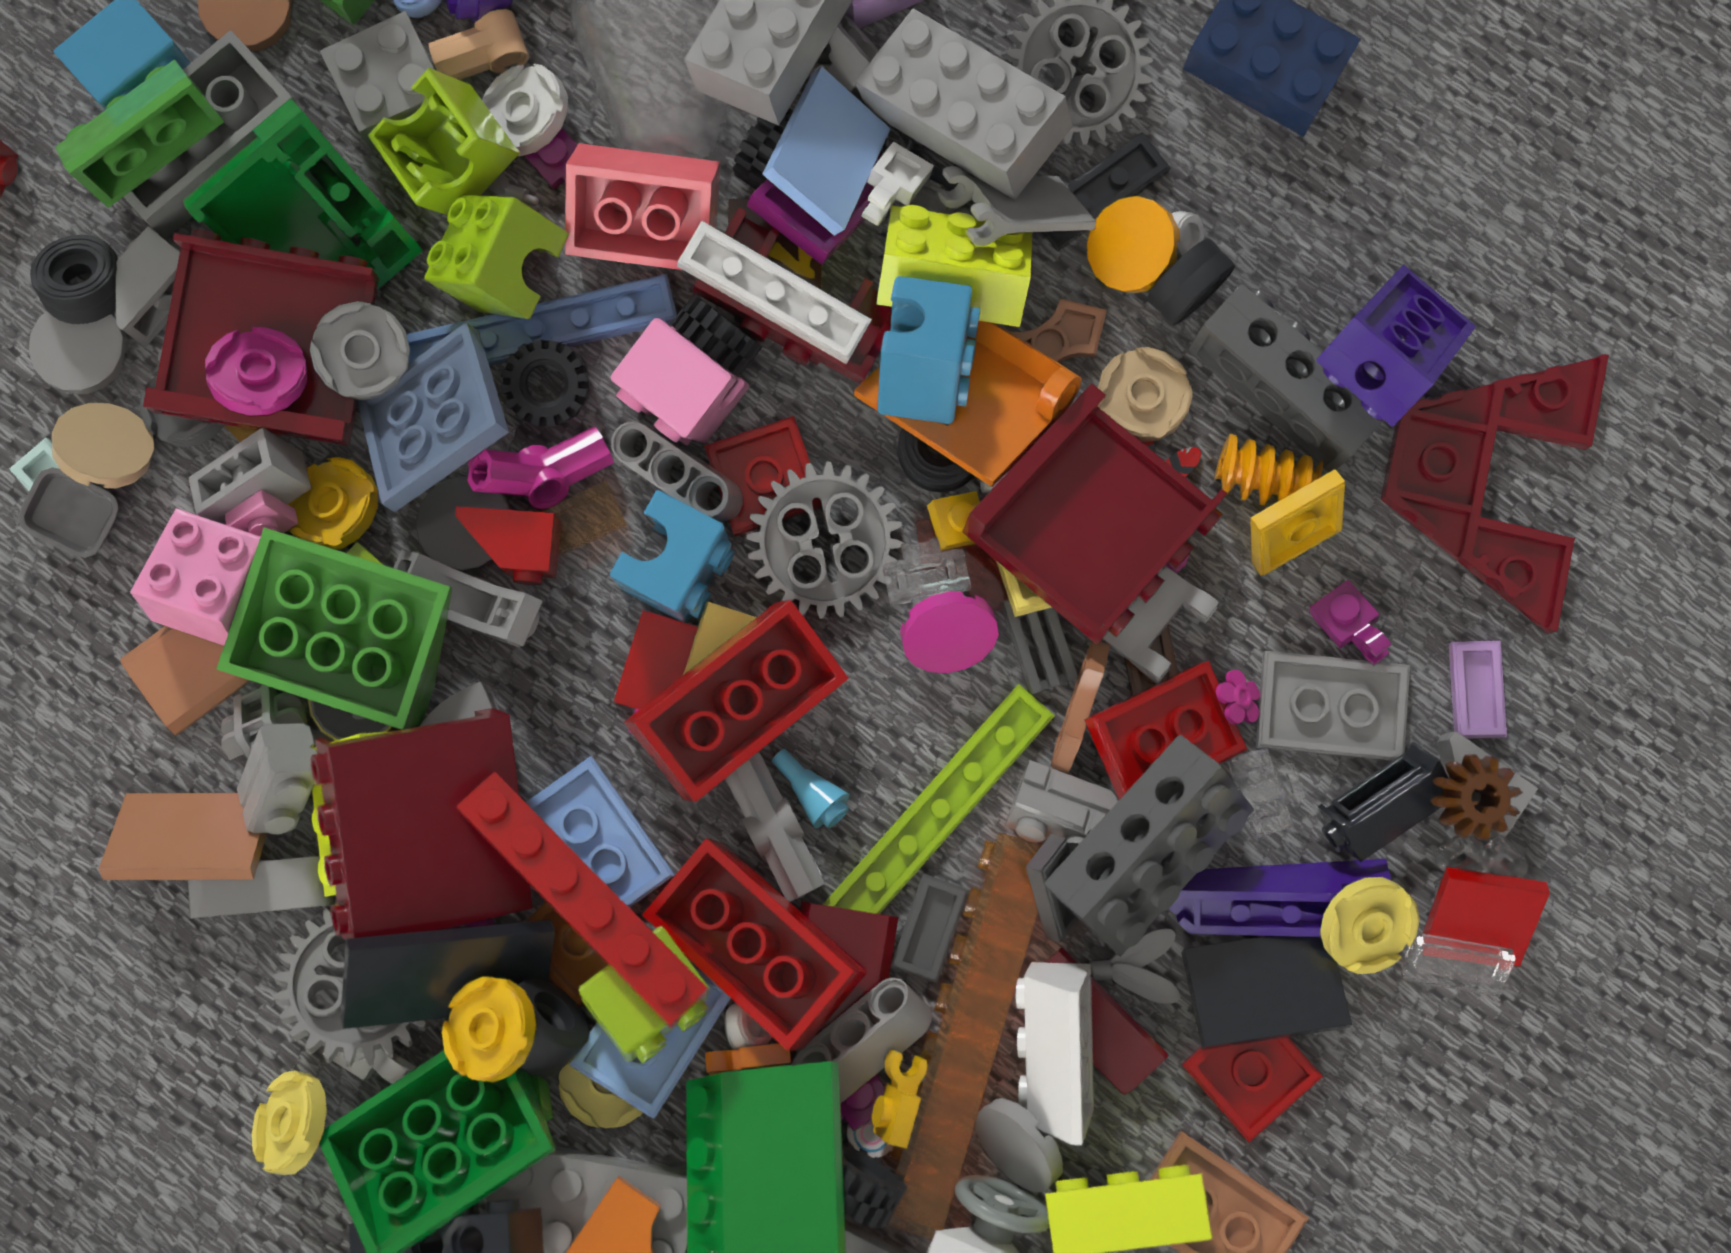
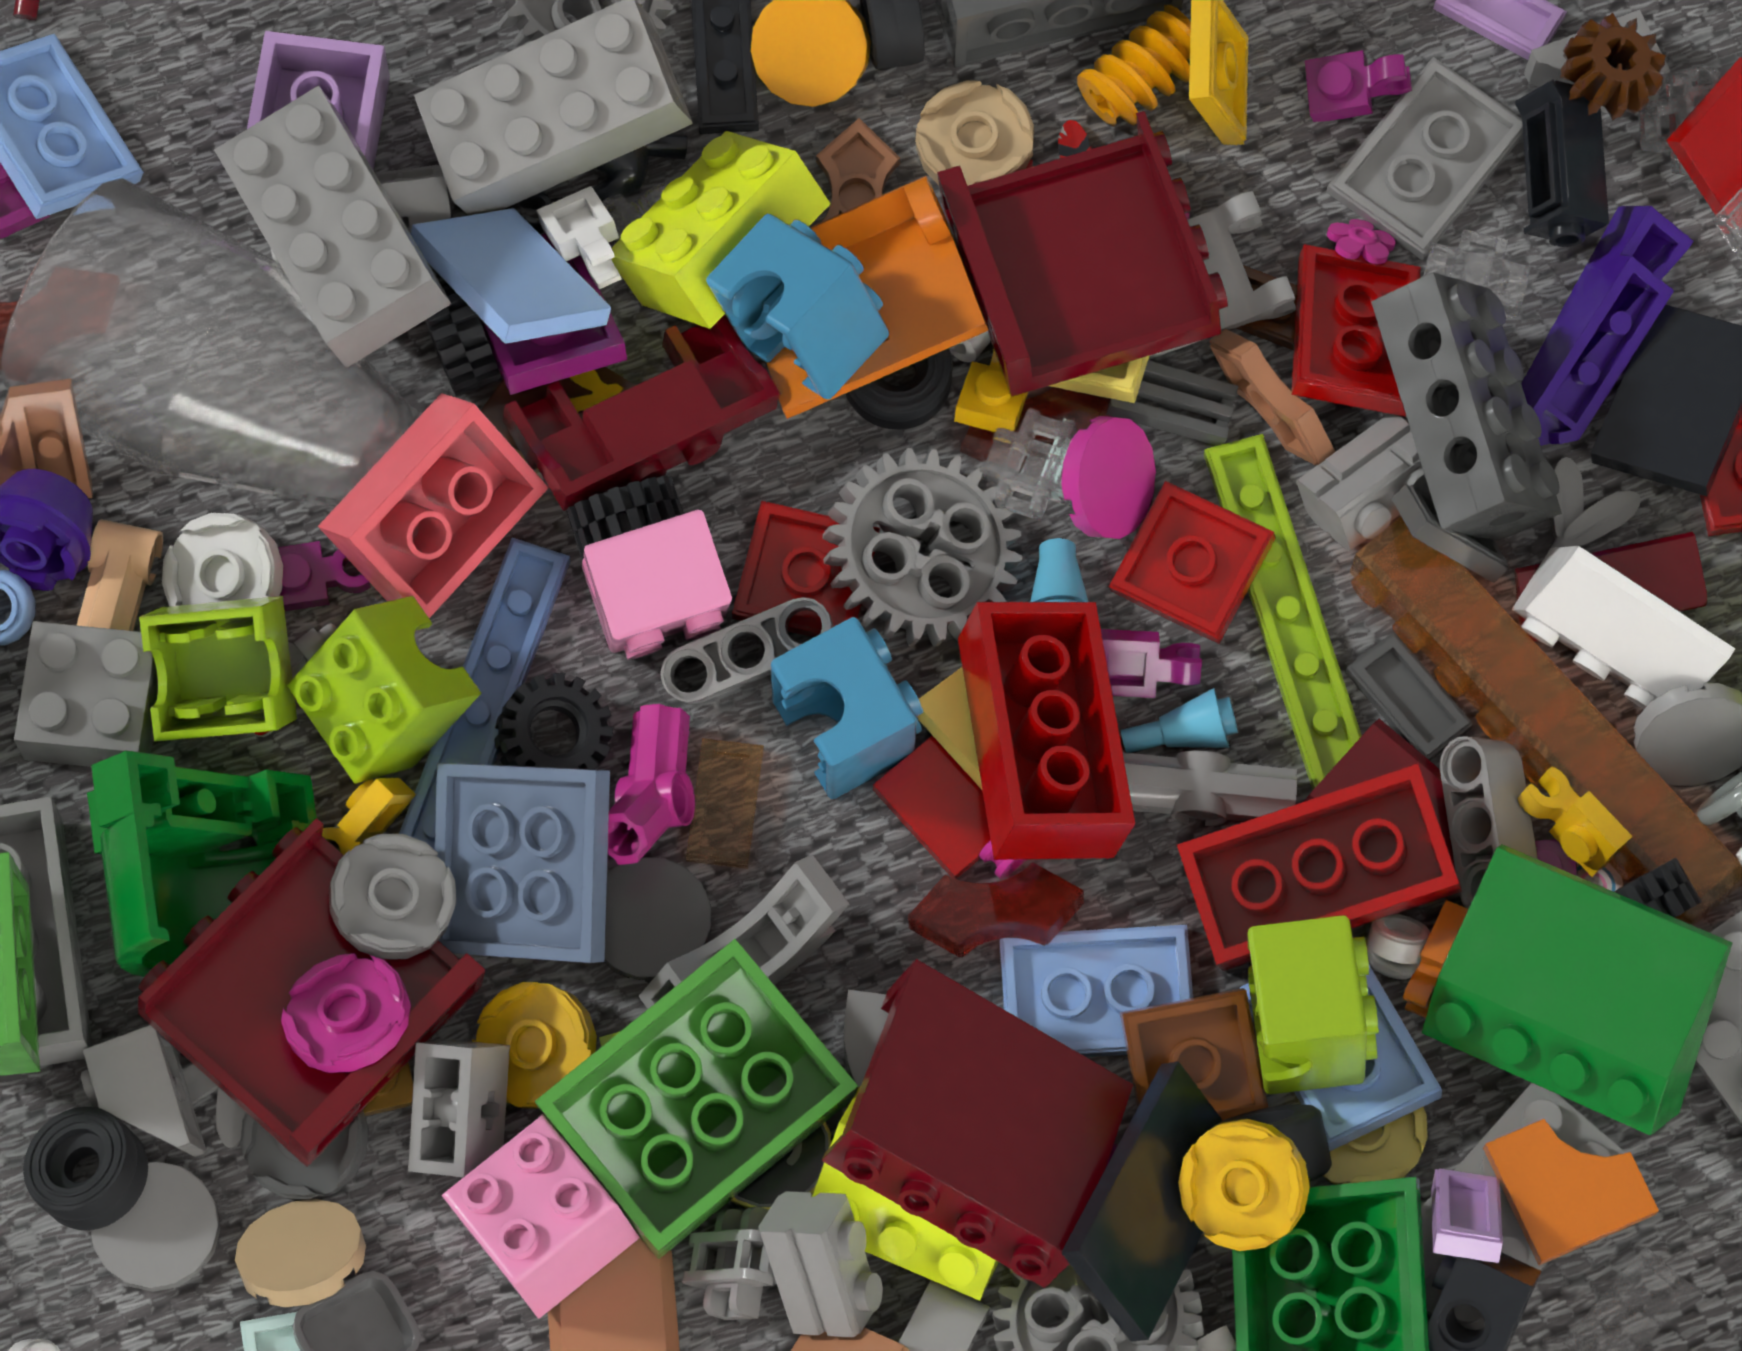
camera: 60 degrees left, 10 degrees down
(262, 511) = (505, 1114): bright pink plate -> none
(419, 303) = (371, 812): none -> yellow plate
(517, 541) = (714, 863): red slope -> none
(547, 1199) = (1466, 1215): none -> lavender tile
(583, 900) = (1169, 988): red plate -> none
(589, 725) = (968, 914): none -> clear red tile
(773, 292) = (629, 420): white tile -> none
(833, 731) = (1138, 663): none -> magenta plate
(859, 644) = (1058, 573): none -> medium azure cone
(930, 724) = (1192, 562): none -> red tile
(1040, 207) = (718, 108): light grey flag -> none
(1369, 925) = (1679, 254): light yellow tile -> none

